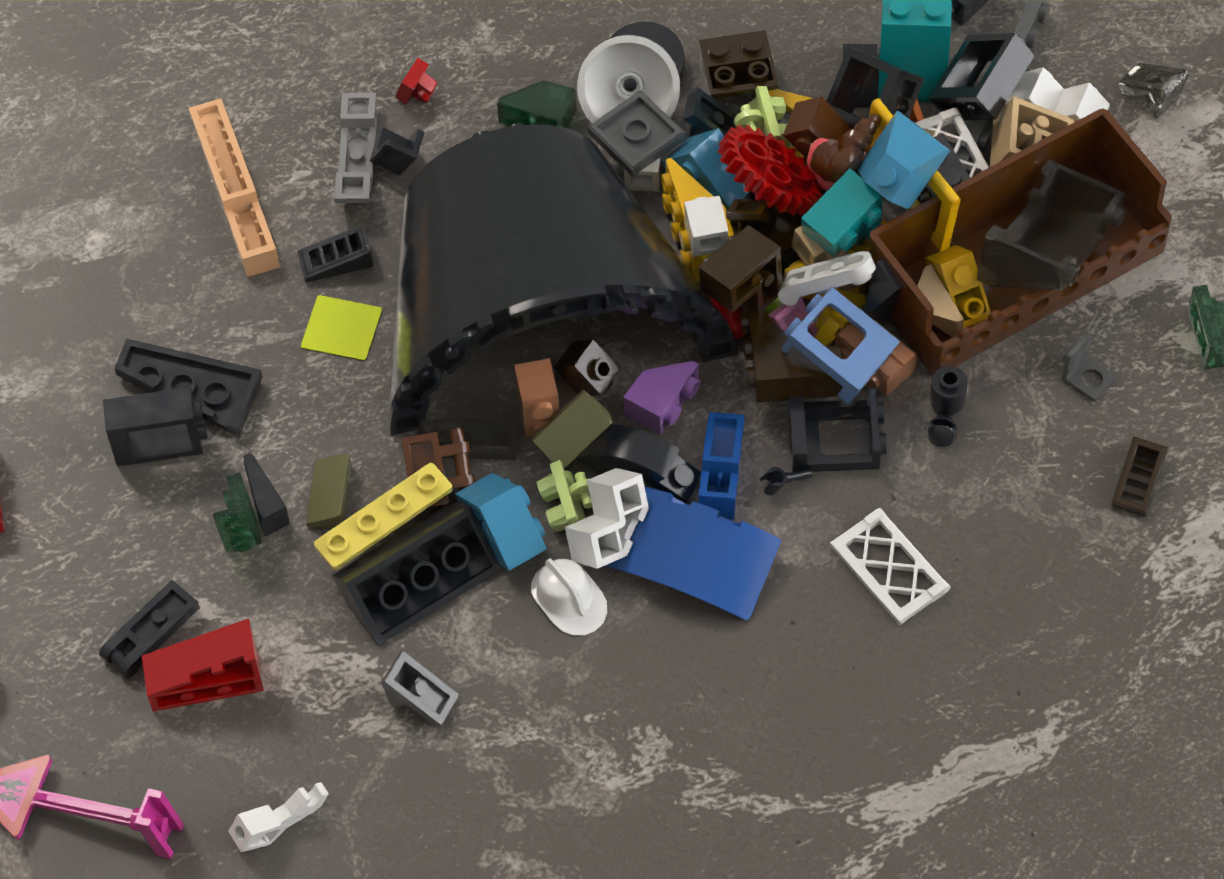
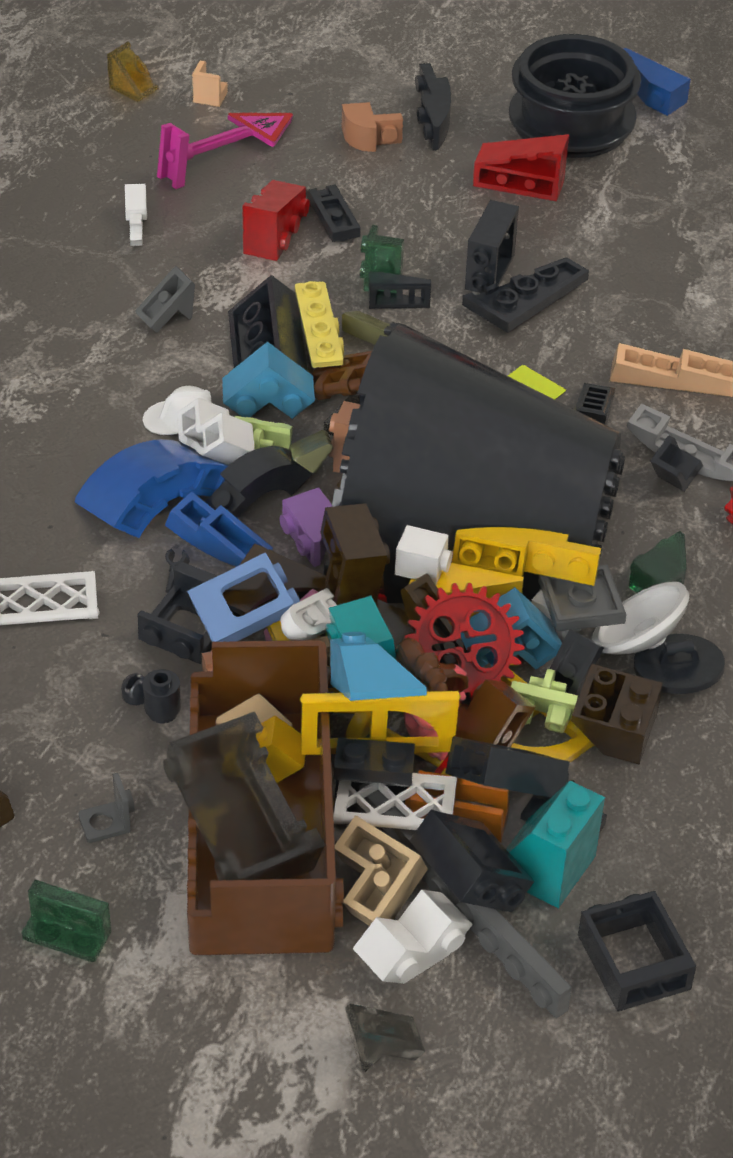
camera: 115 degrees right, 15 degrees down
(637, 169) = (526, 550): none -> yellow slope

